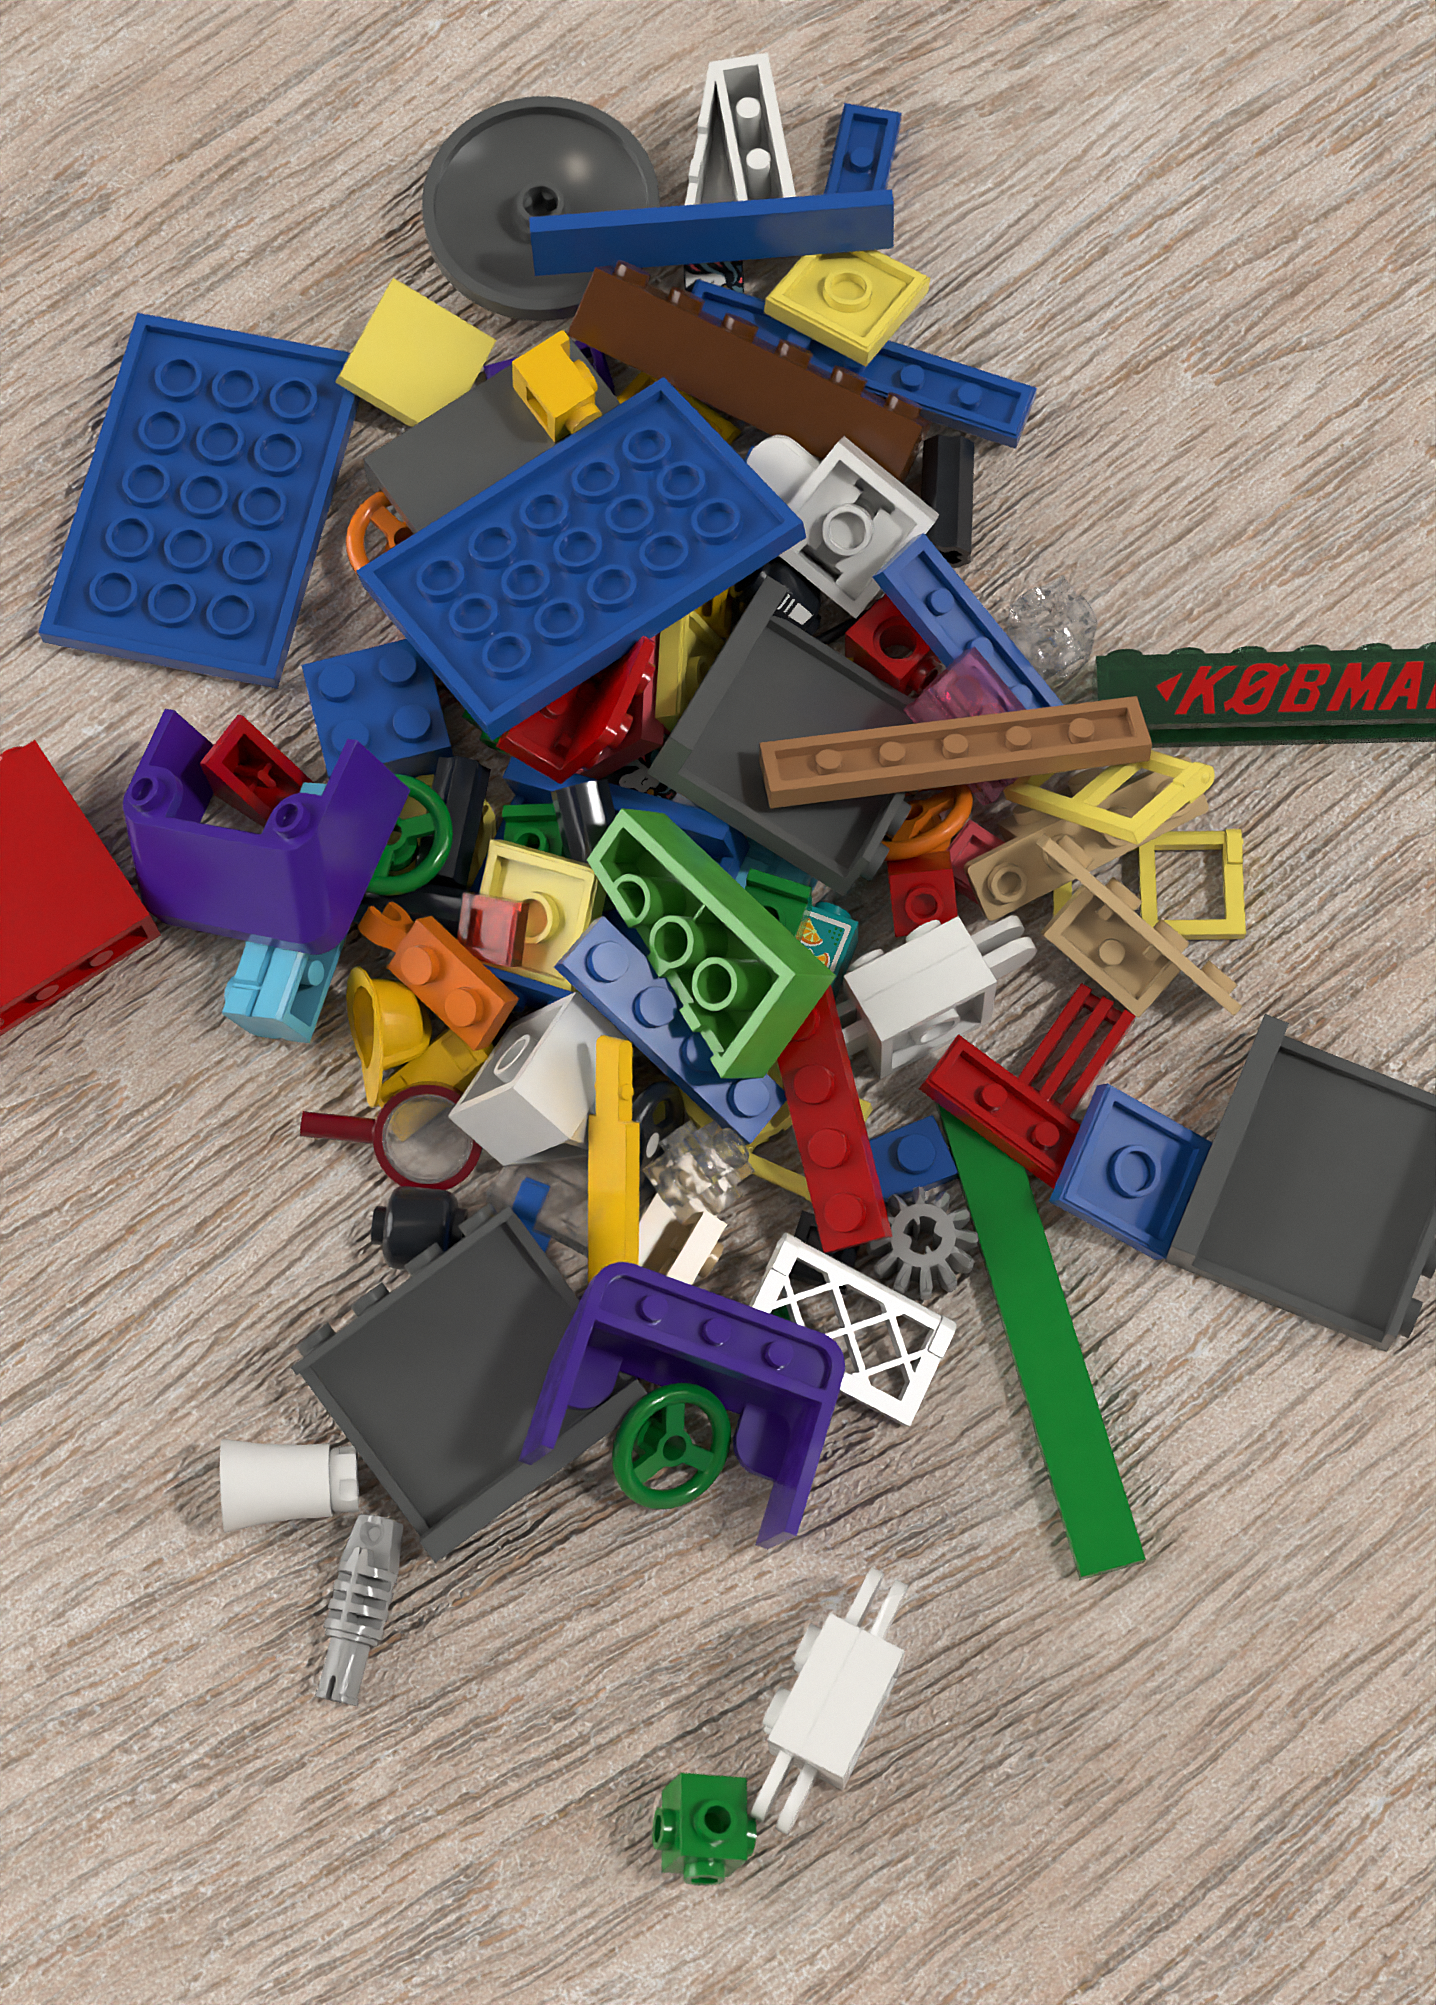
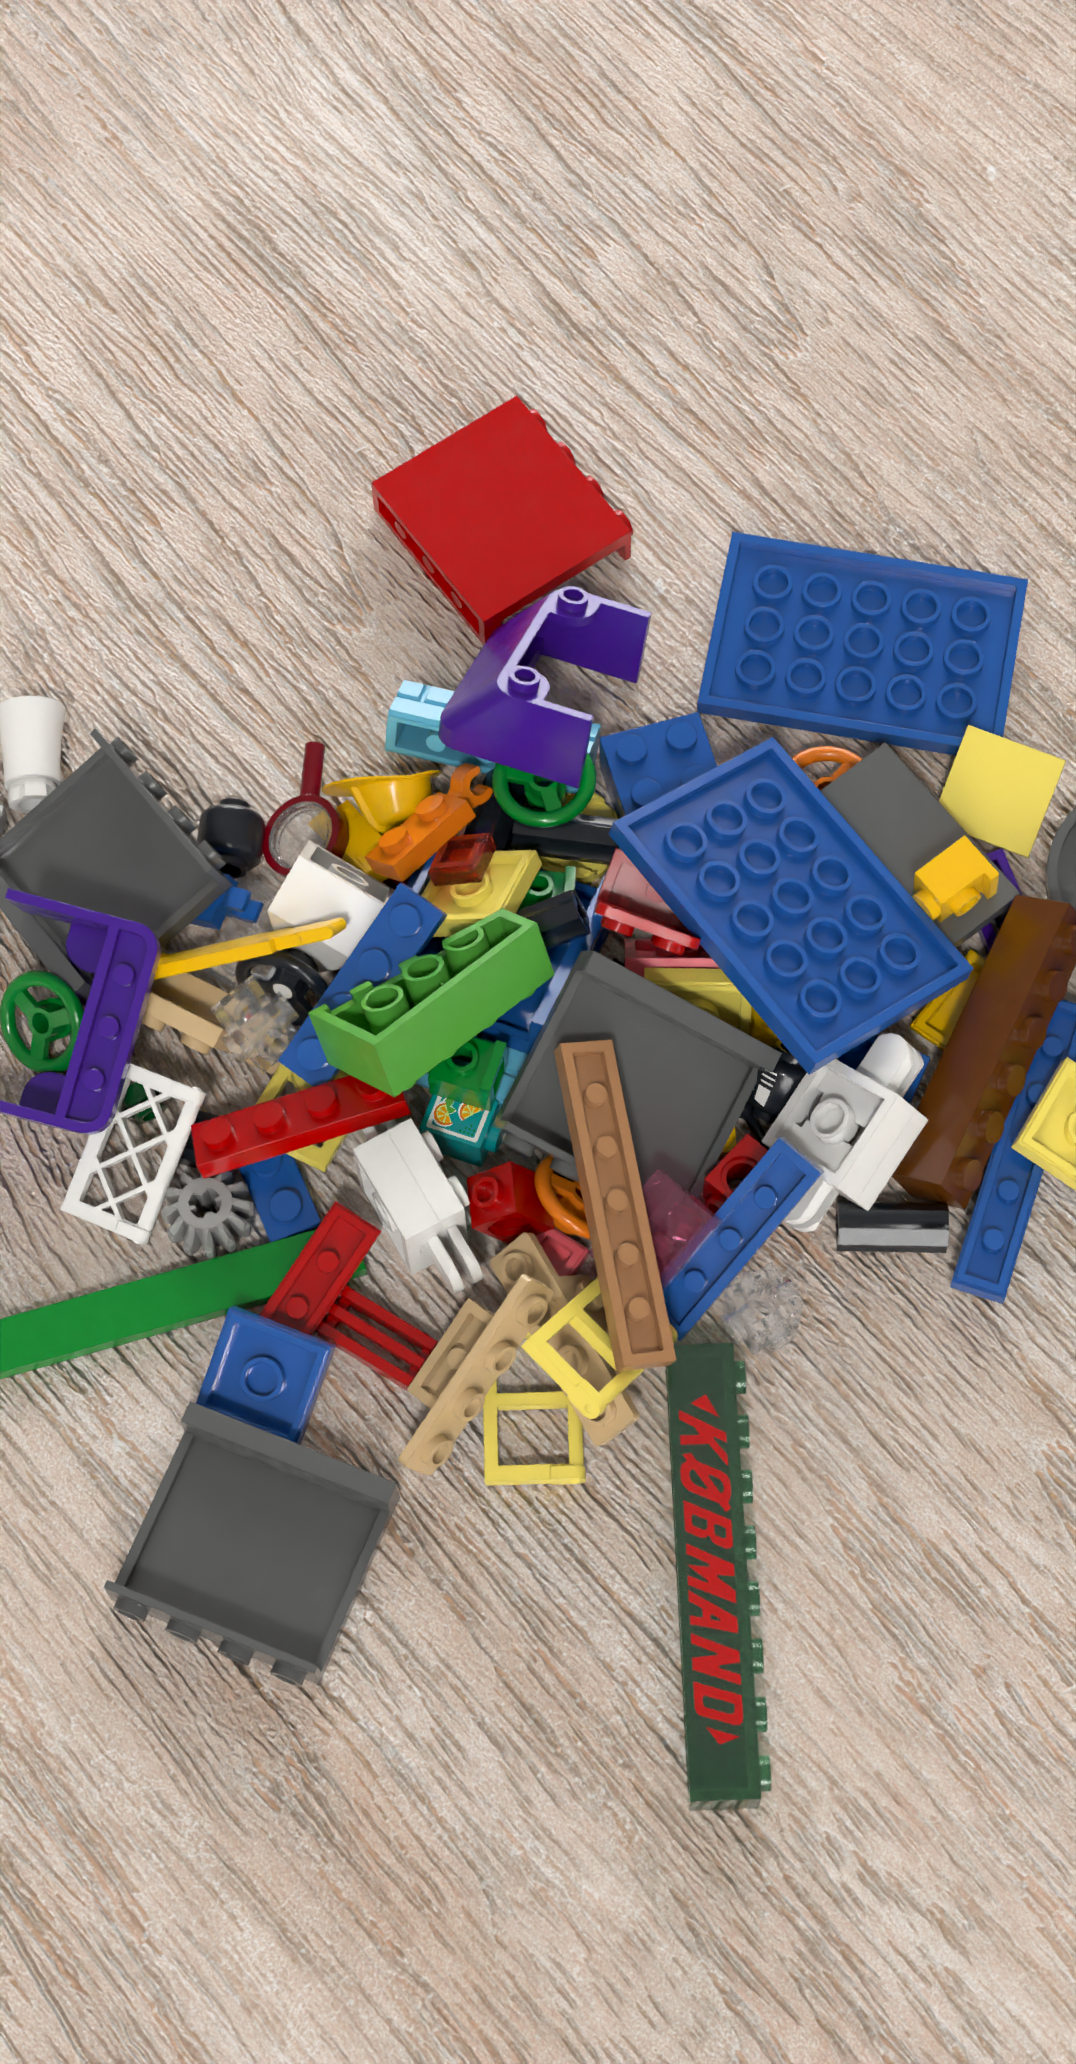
camera: 85 degrees right, 5 degrees down
(250, 771) = (613, 689): red slope -> none

